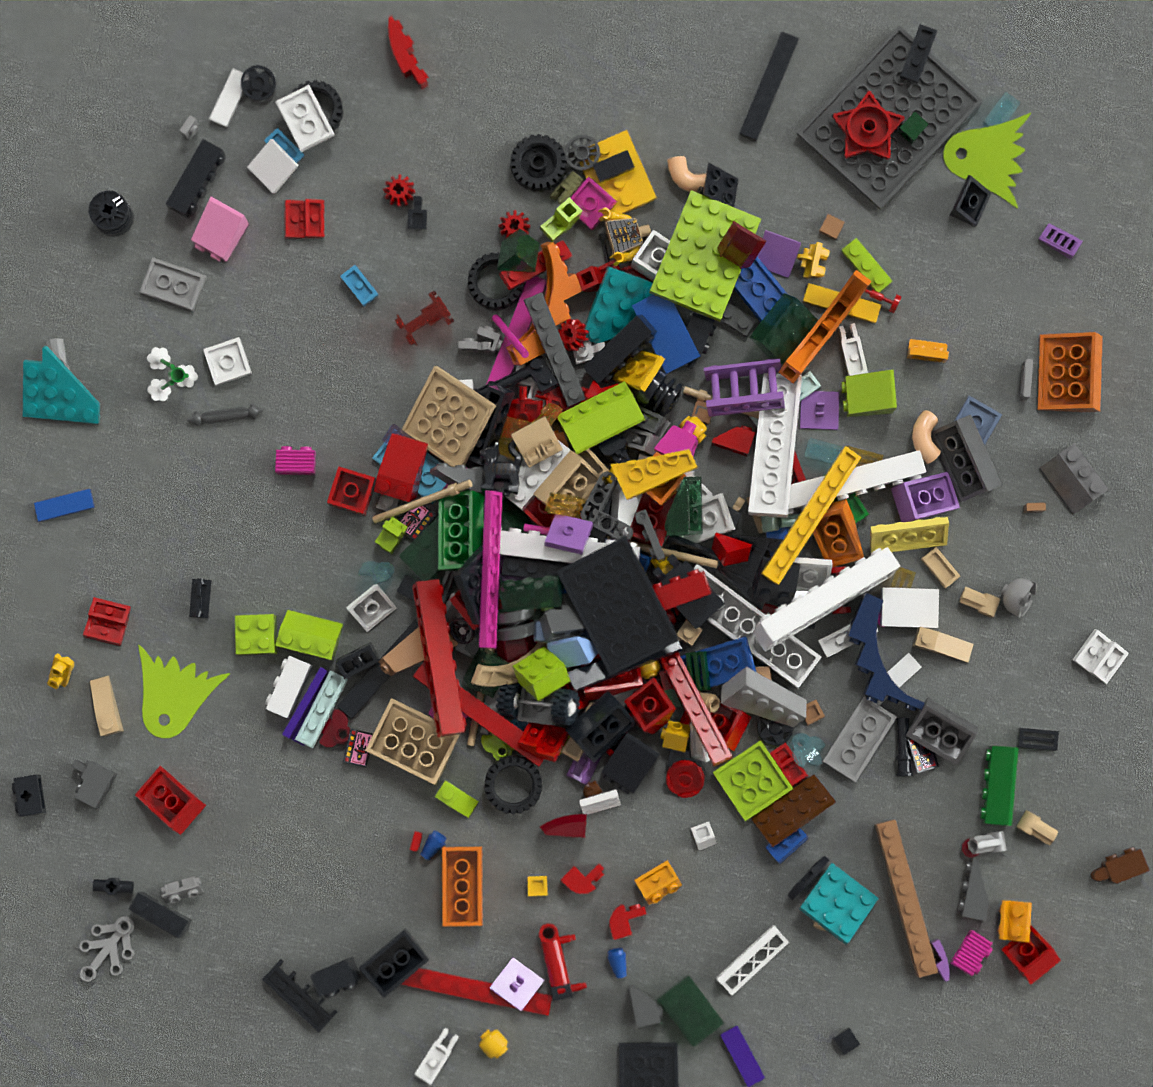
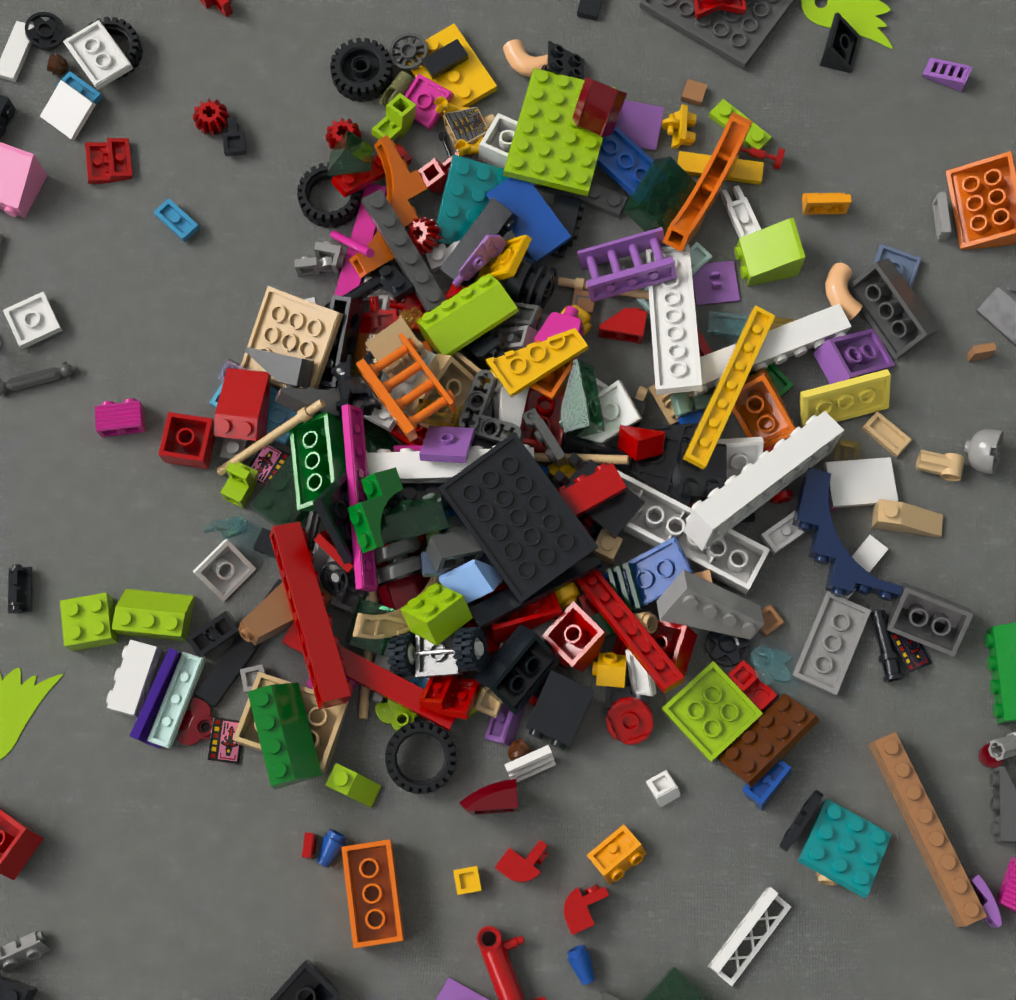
camera: 10 degrees left, 10 degrees down
(266, 118) = (57, 64): none -> reddish brown plate
(383, 699) = (249, 675): none -> light grey plate
(408, 753) = (284, 734): none -> green slope
(430, 315) = (258, 236): clear red piece -> none
(440, 443) = (284, 368): none -> slope
(496, 587) = (367, 514): none -> green arch
(531, 498) = (396, 406): none -> orange fence
(628, 358) = (485, 251): none -> medium lavender piece

